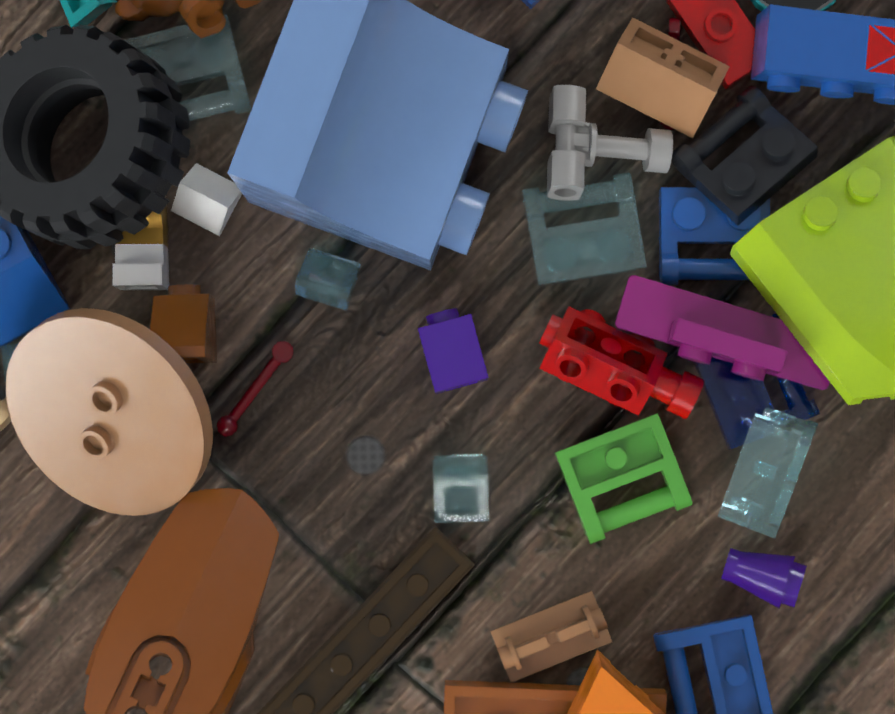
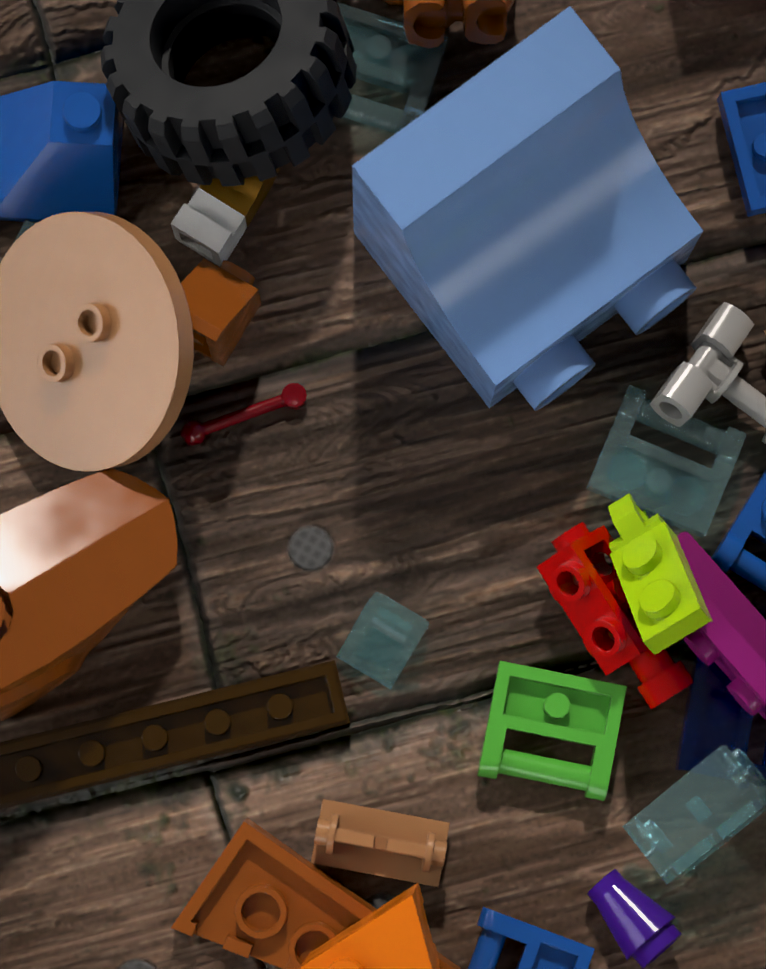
camera: 30 degrees right, 5 degrees down
(206, 199) = (314, 202): white slope -> none
(327, 278) = (382, 352): clear light blue slope -> none
(452, 351) = (460, 497): dark purple brick -> none
(631, 324) = (655, 576): none -> lime hinge

